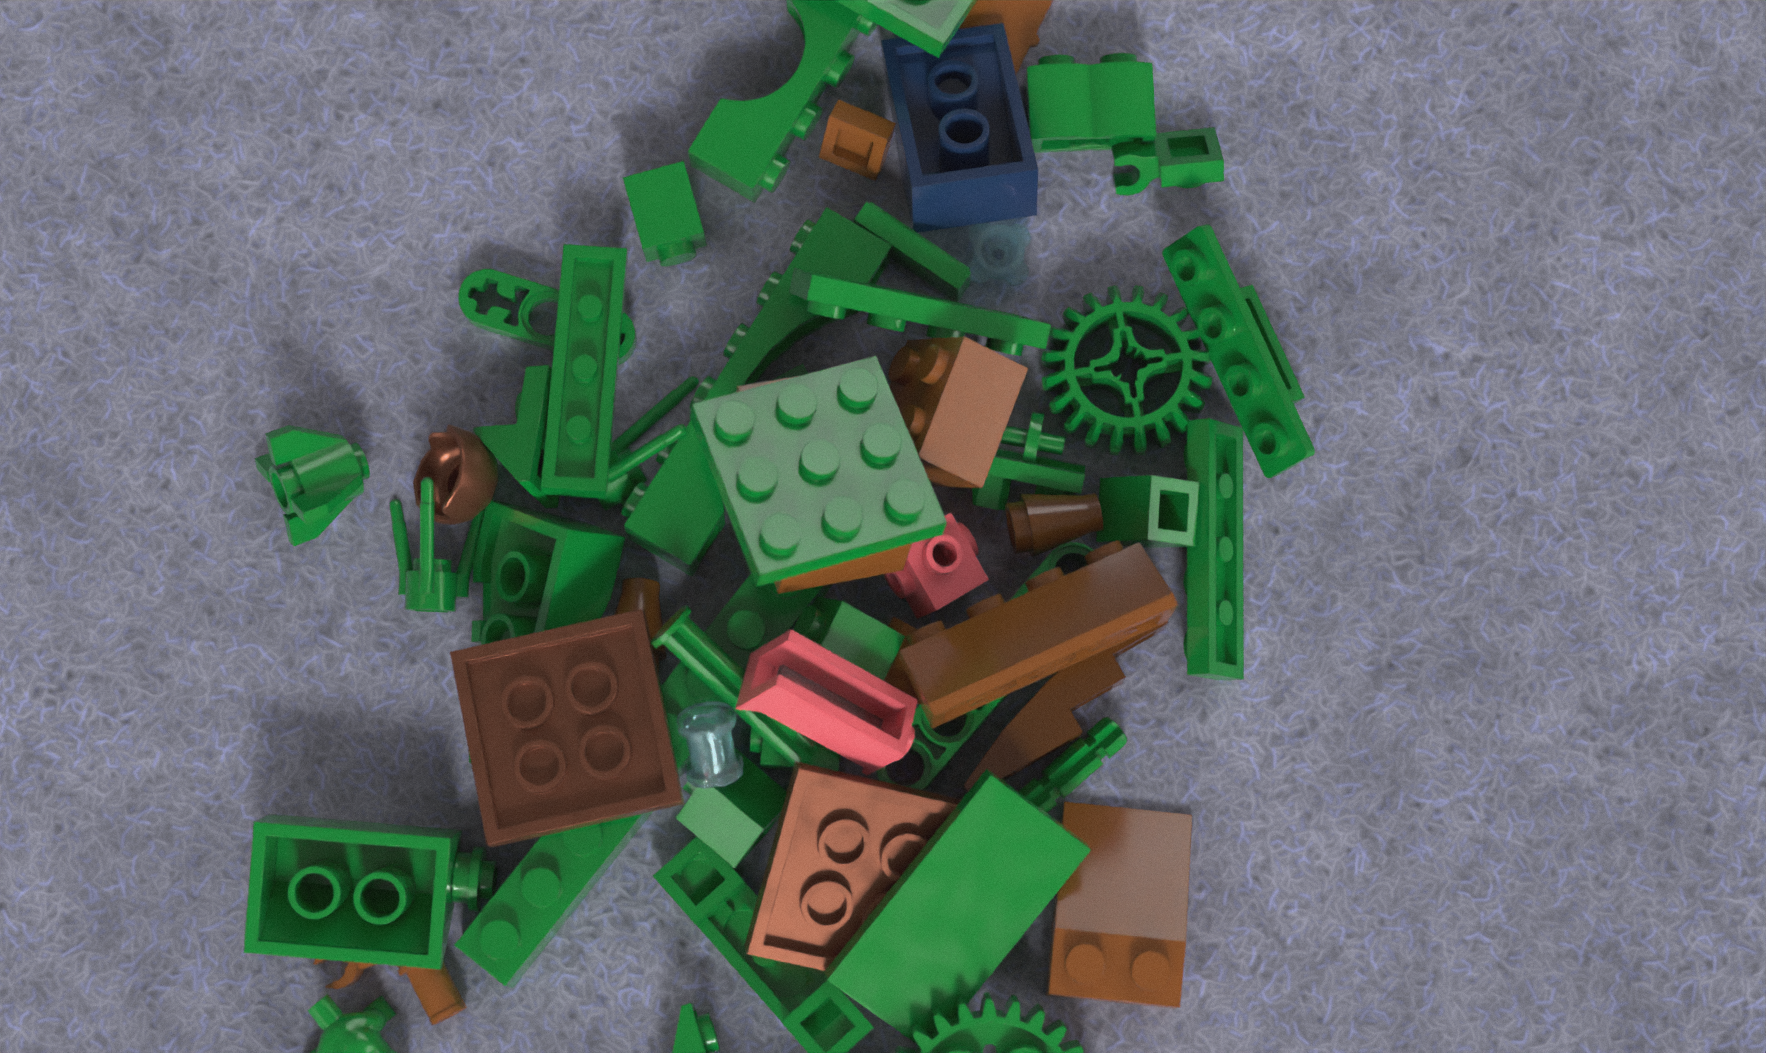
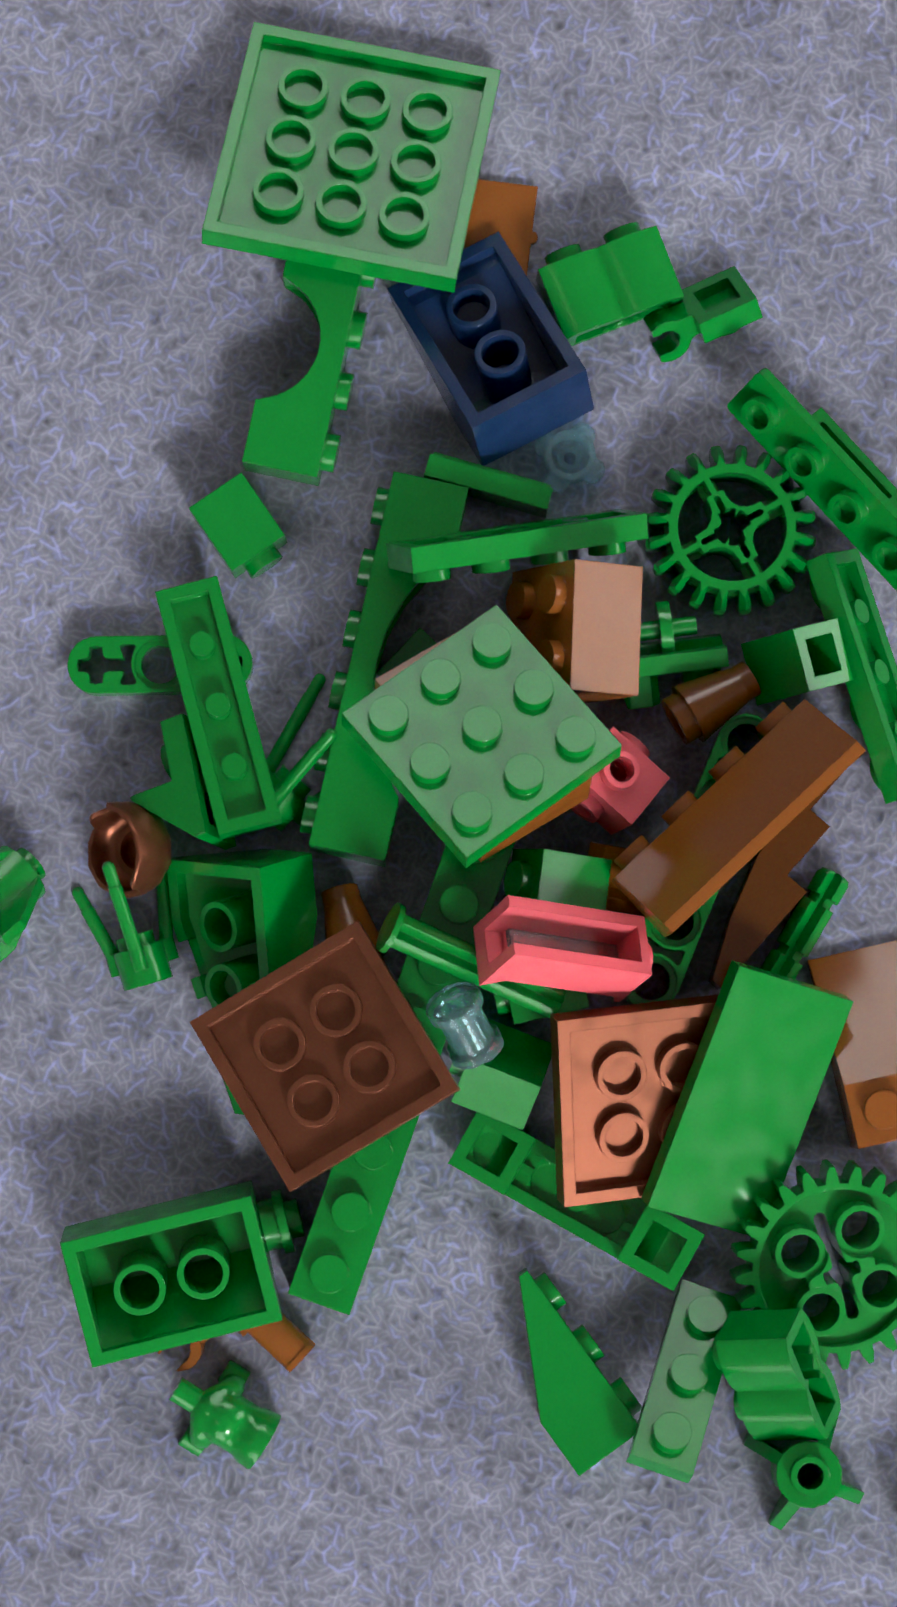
camera: 20 degrees left, 5 degrees up
(857, 140) = (398, 393): dark orange plate -> none

